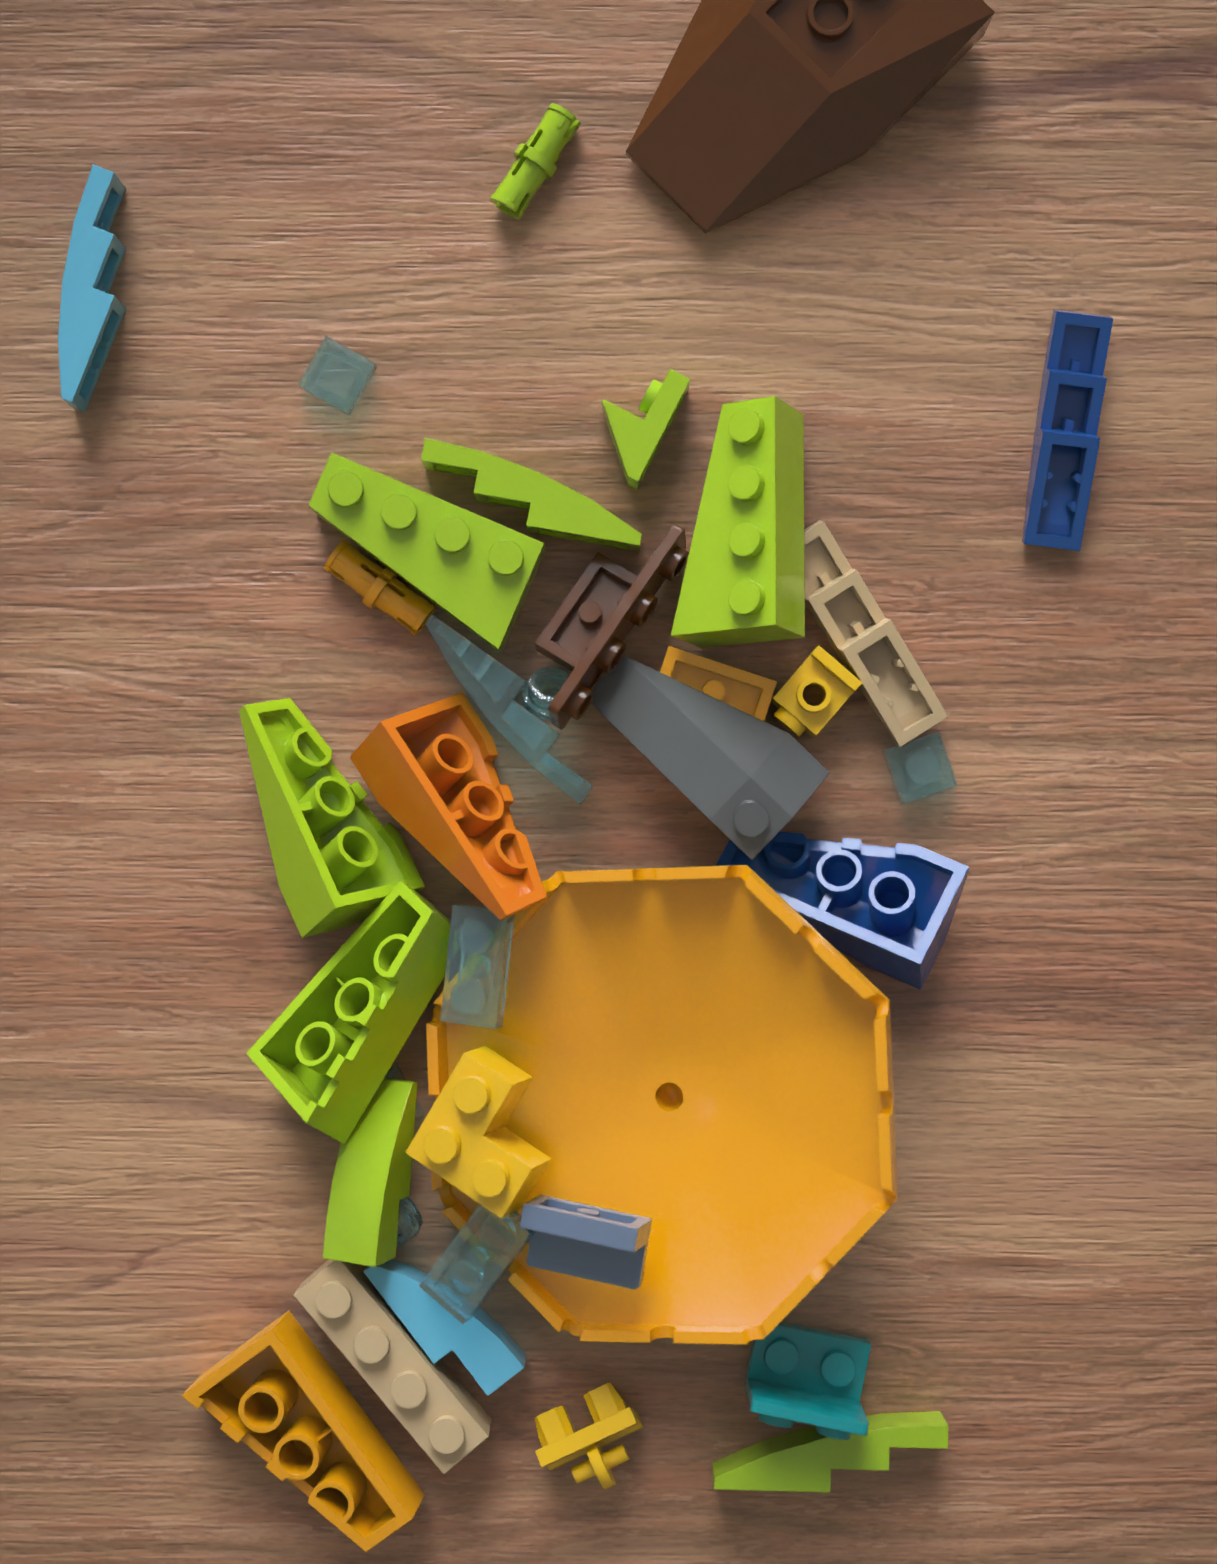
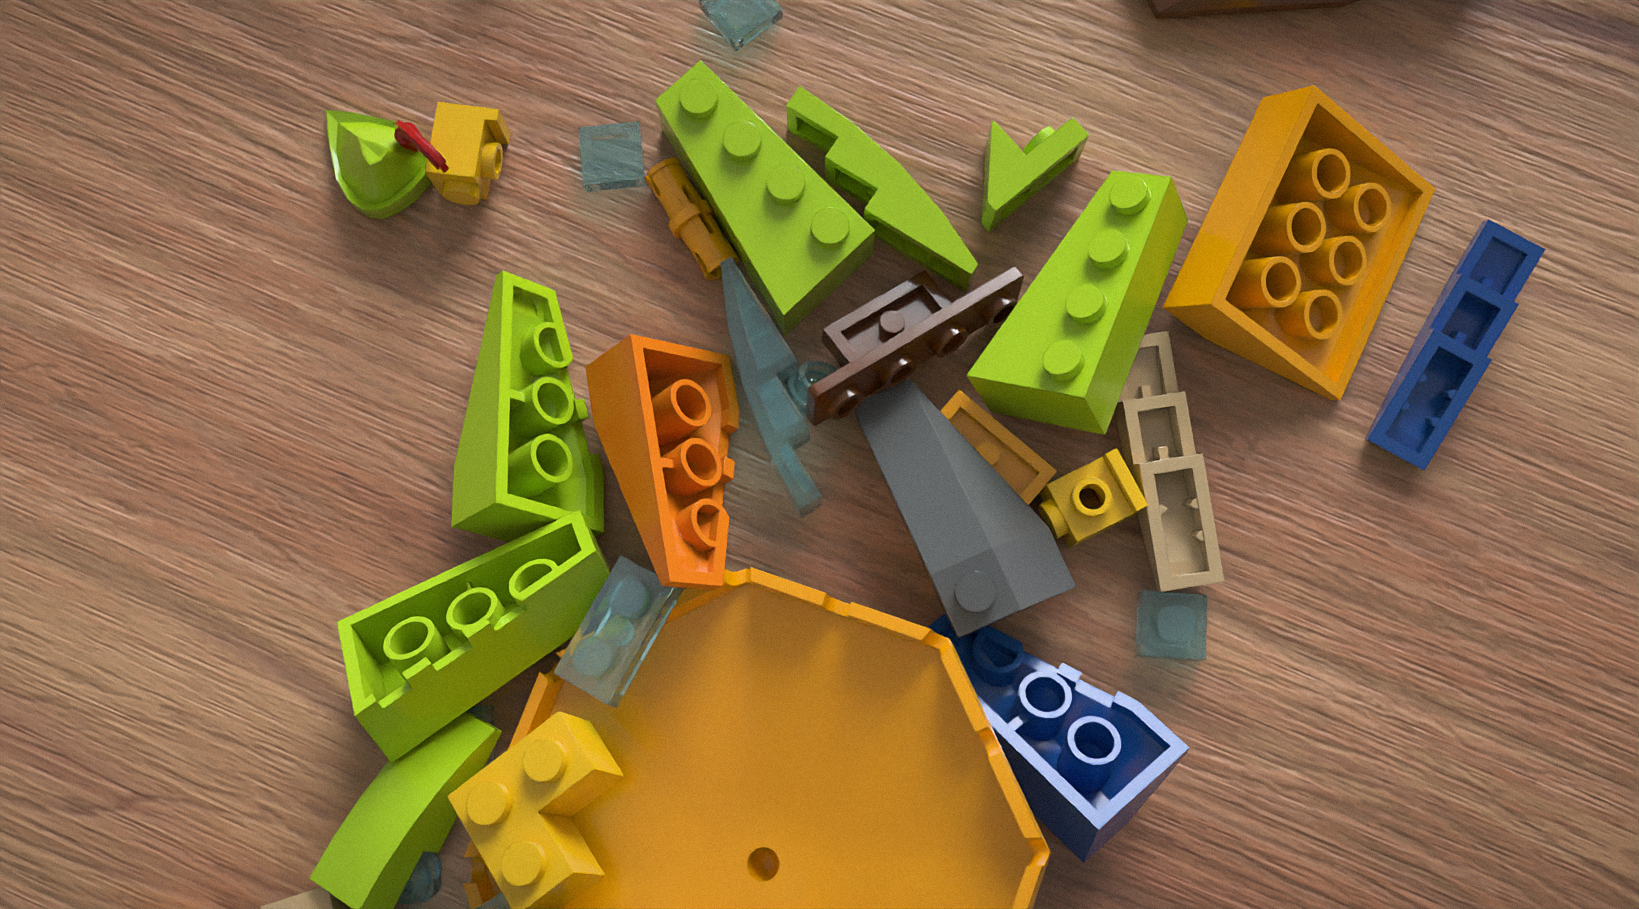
camera: 25 degrees right, 10 degrees down
(87, 647) = (379, 162): none -> lime piece
(160, 612) = (473, 151): none -> yellow brick
(285, 558) = (612, 156): none -> clear light blue tile
(907, 394) = (1301, 242): none -> light orange slope

